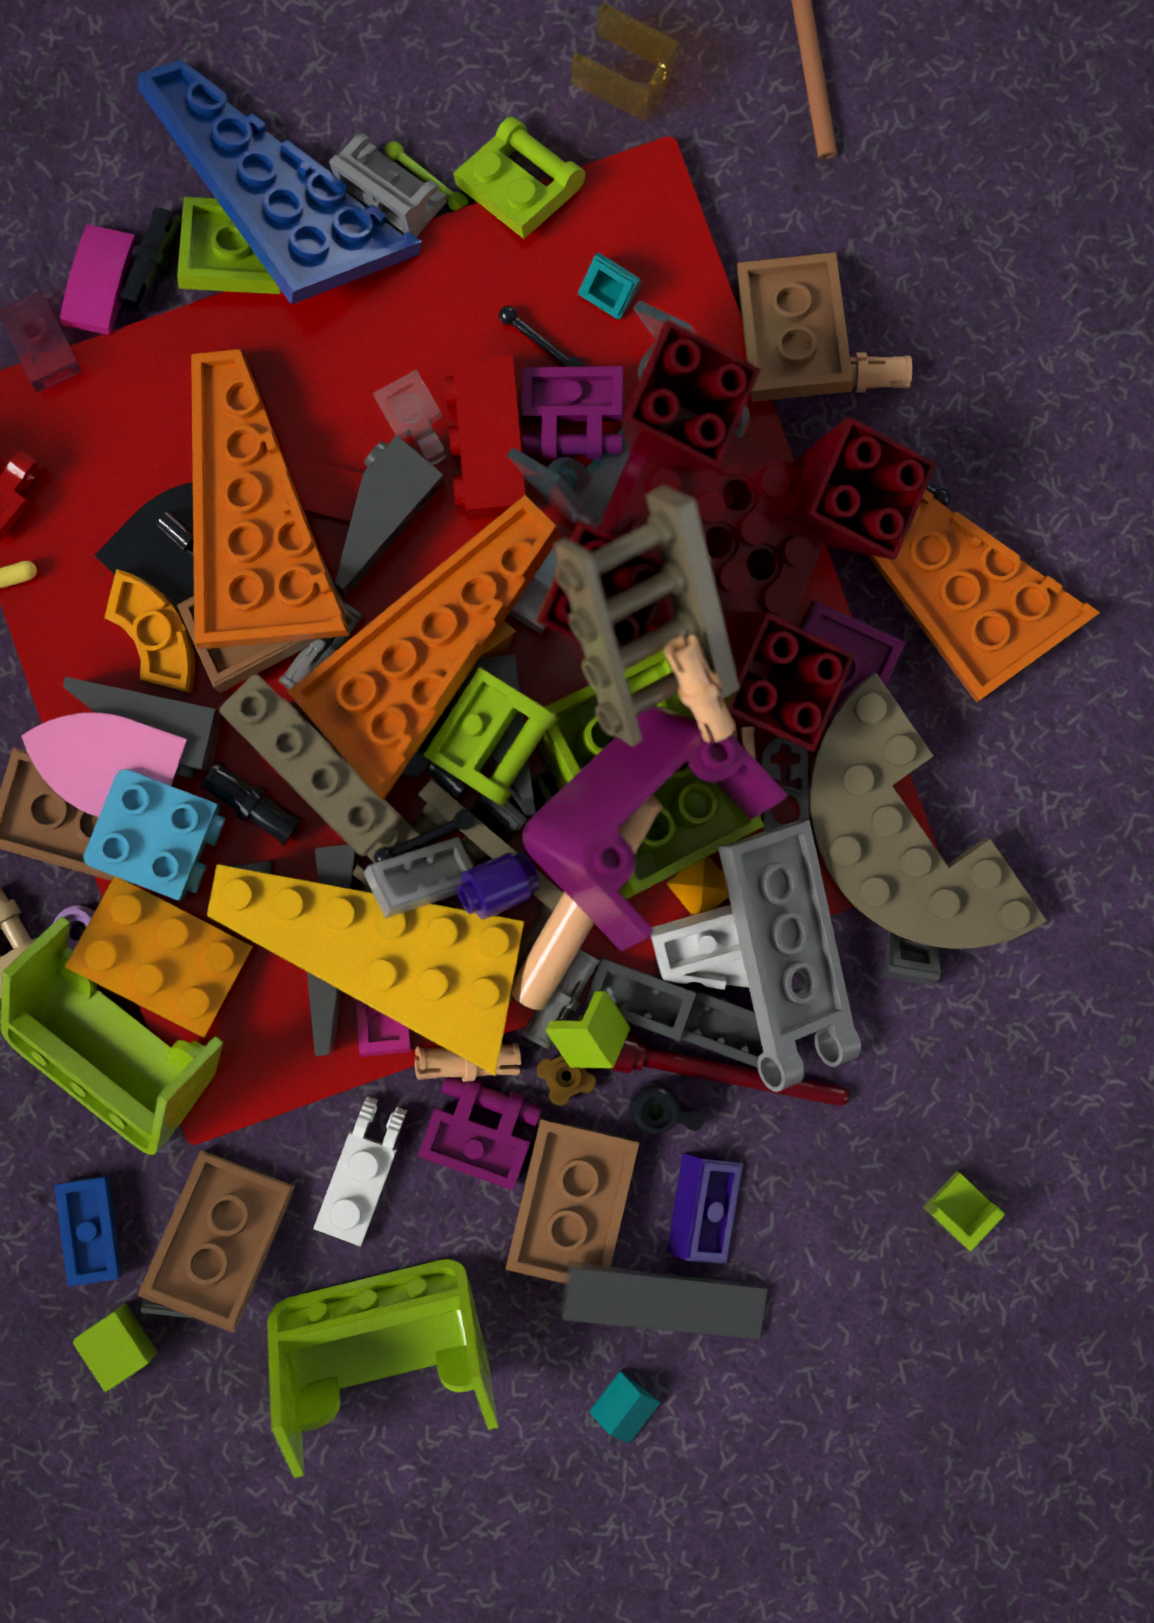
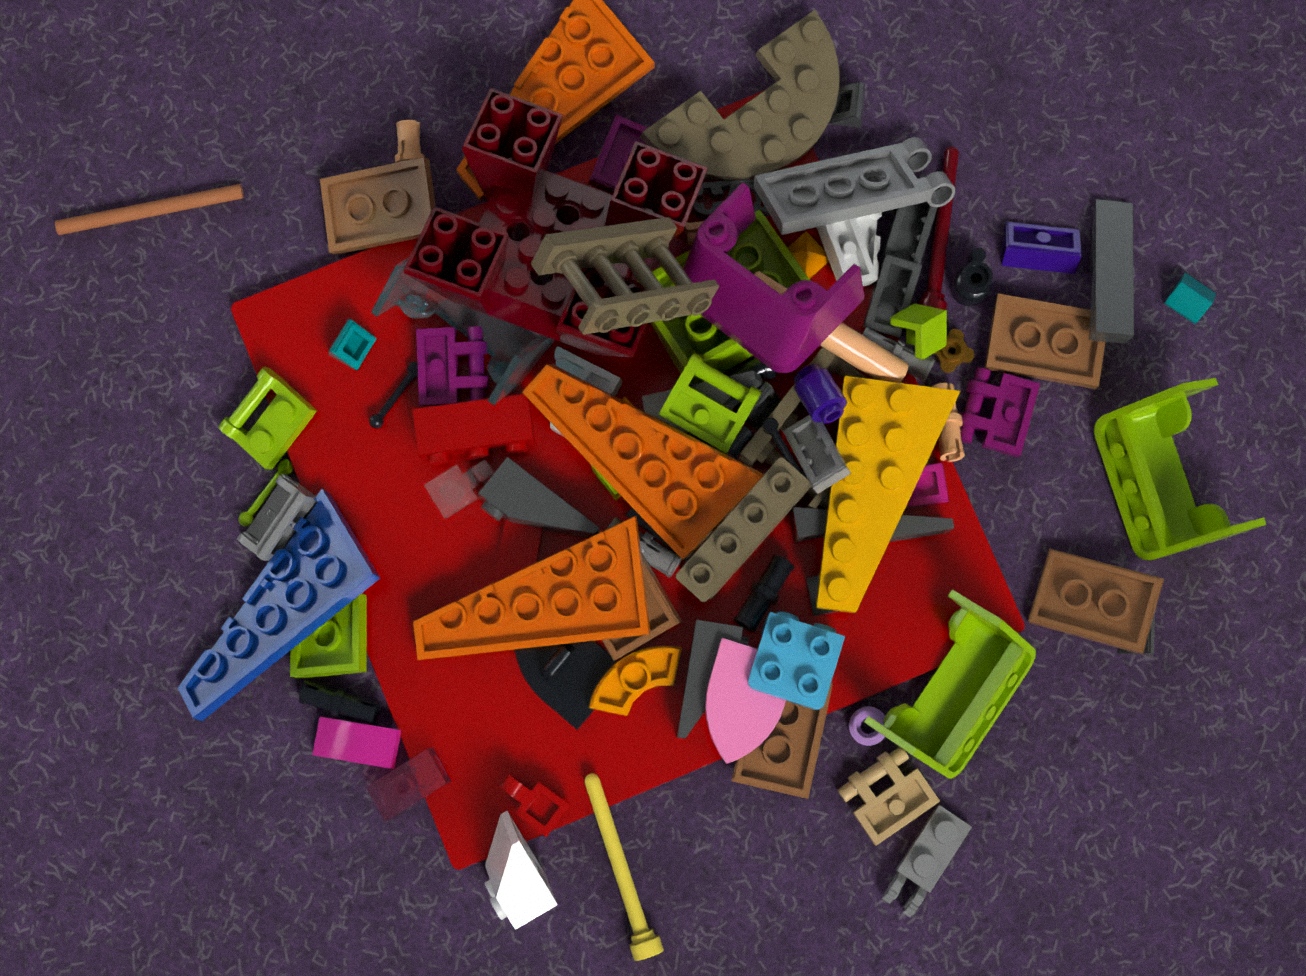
camera: 95 degrees left, 5 degrees down
(88, 1230) = (1095, 701): blue plate -> none
(115, 1347) = (1183, 672): lime panel -> none
(158, 956) = (886, 655): light orange plate -> none
(359, 1177) = (1037, 500): white hinge -> none
(639, 40) = (159, 329): clear yellow piece -> none
(699, 688) = (673, 240): light nougat pin -> none
(963, 1211) = (1029, 60): lime panel -> none

